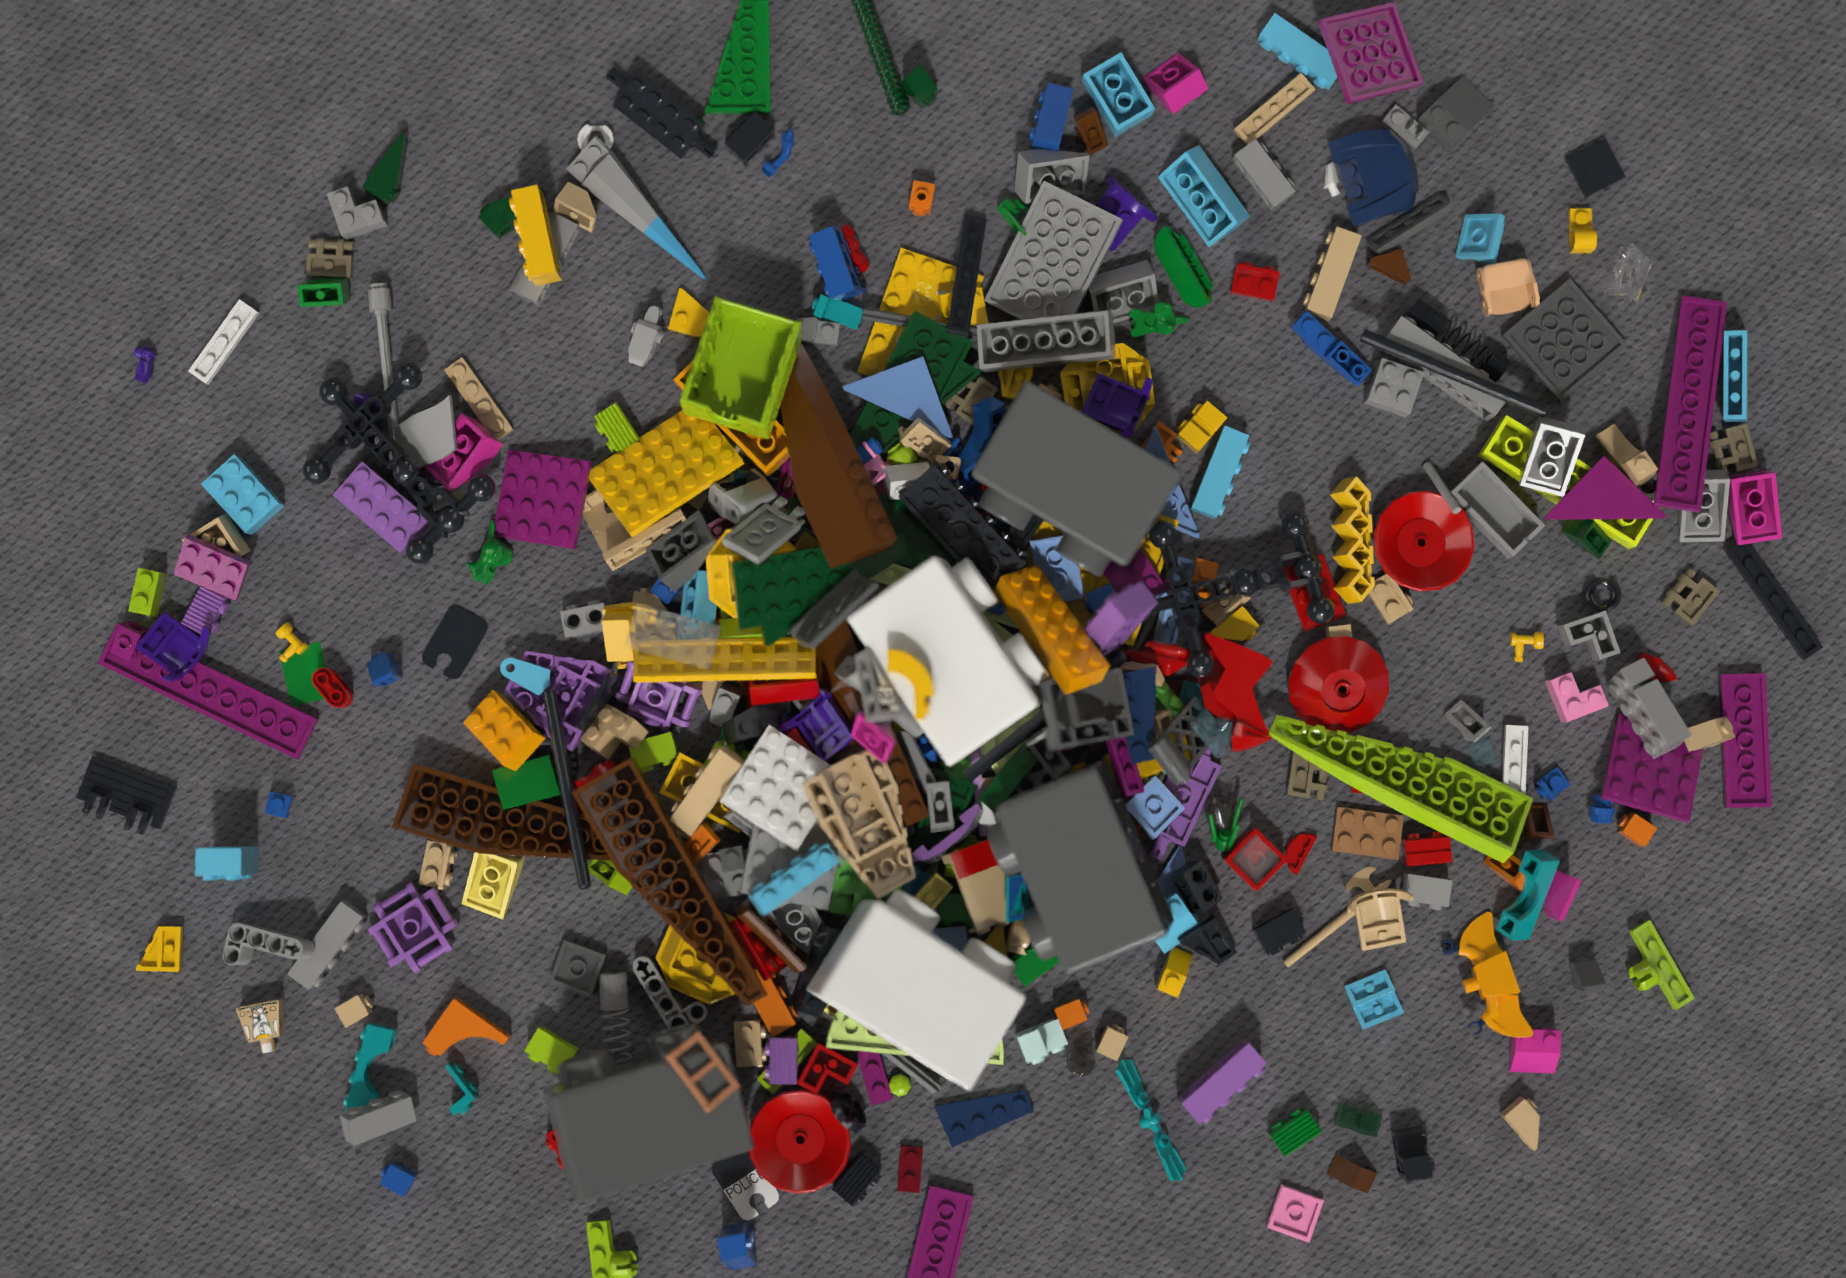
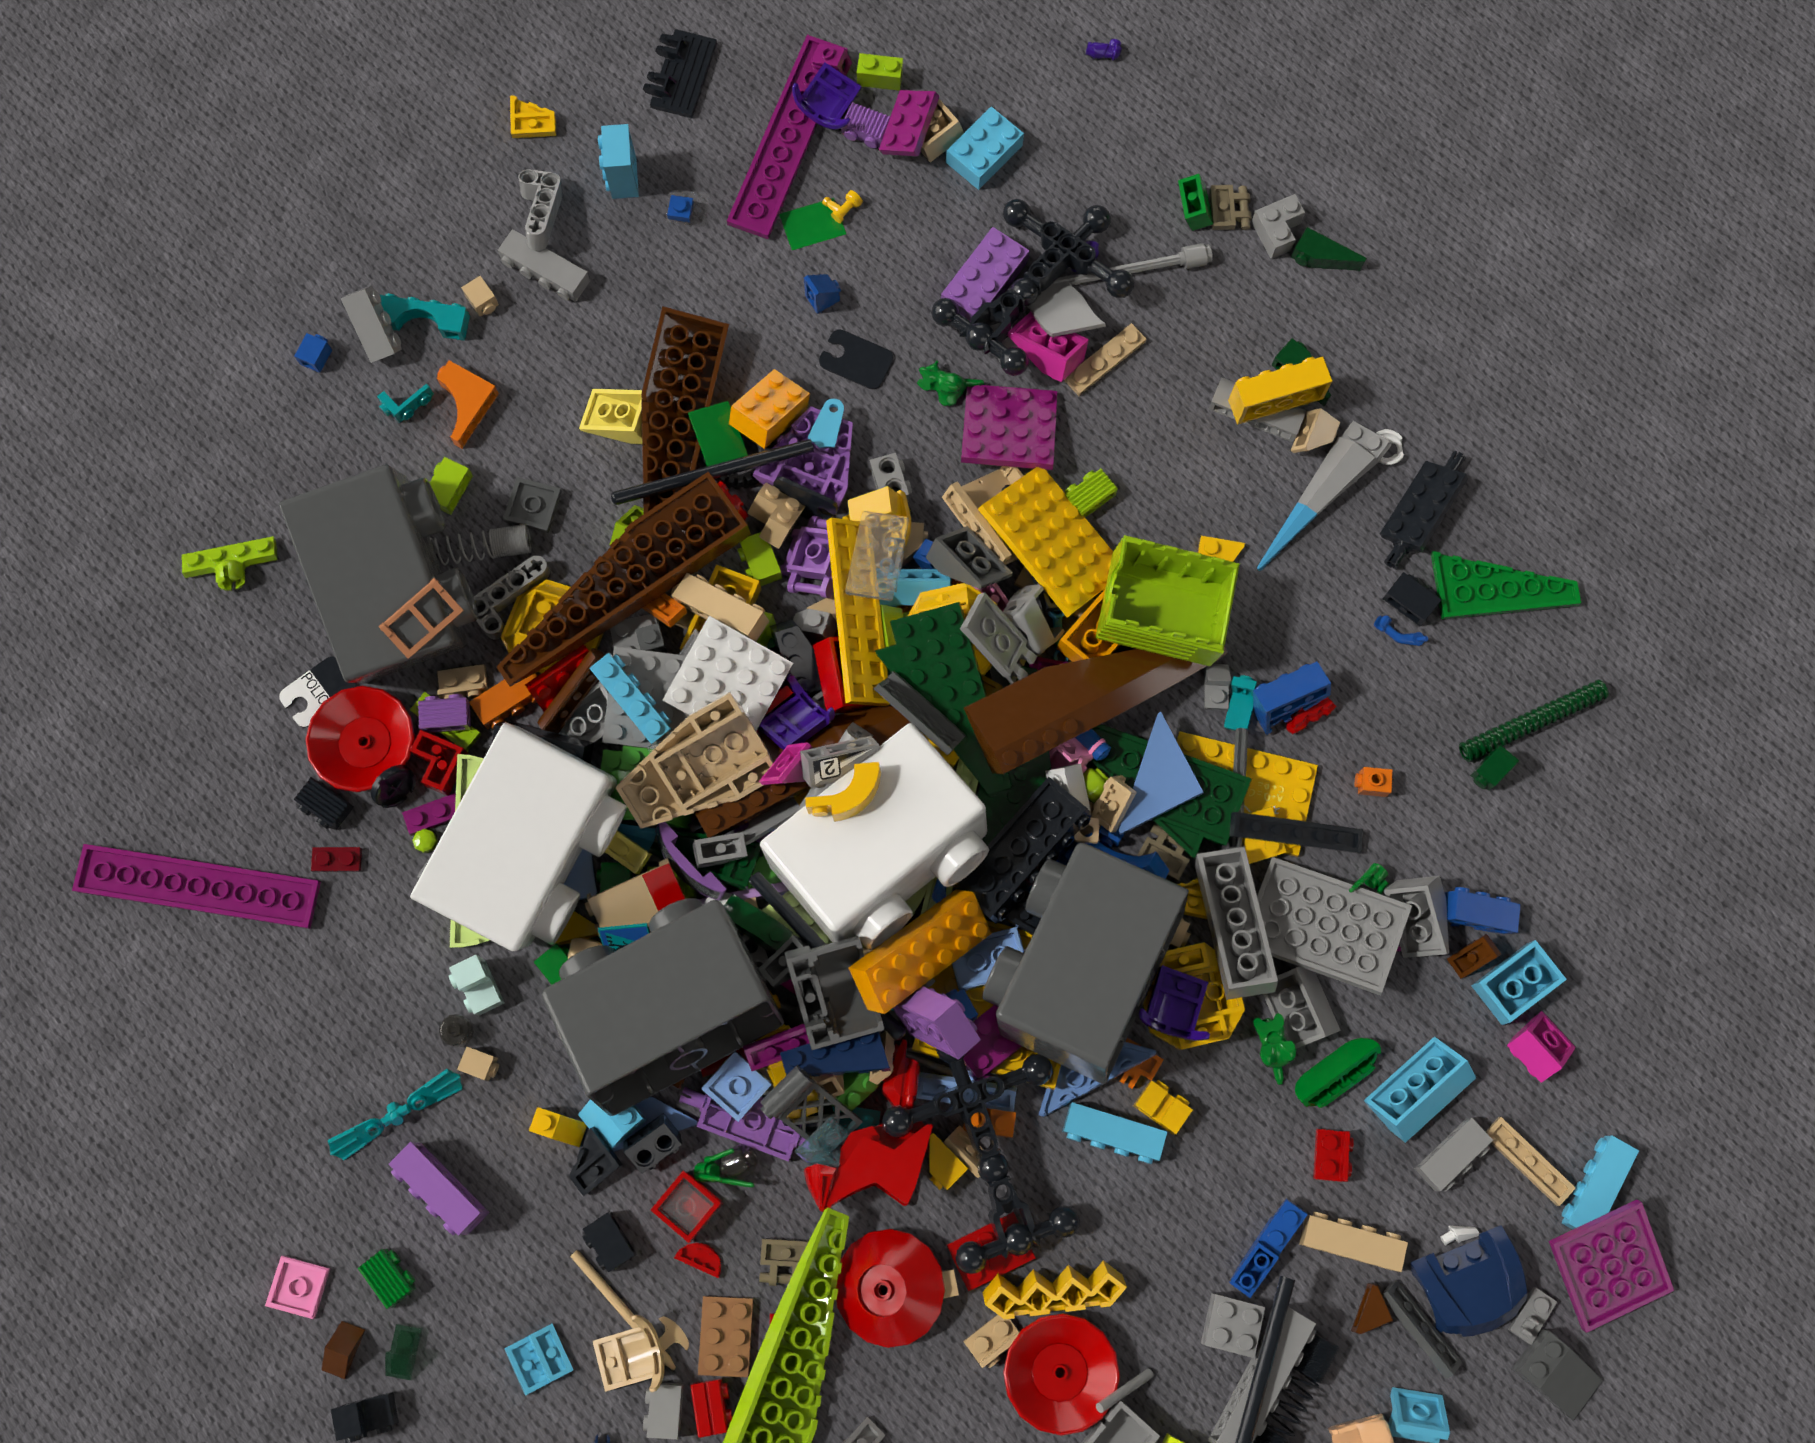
camera: 85 degrees right, 10 degrees down
(223, 342) = (1134, 118): white plate -> none
(263, 1022) = (464, 214): torso -> none
(332, 688) = (800, 247): red brick -> none
(412, 927) = (565, 343): medium lavender brick -> none
(437, 865) = (627, 362): tan bracket -> none
(645, 337) = (1189, 513): light grey hinge -> none
(736, 1246) = (250, 683): blue wedge -> none
(977, 1116) = (394, 926): dark blue wing -> none
(1071, 1013) = (508, 1016): orange brick -> none
(1125, 206) = (1394, 1001): dark purple piece -> none

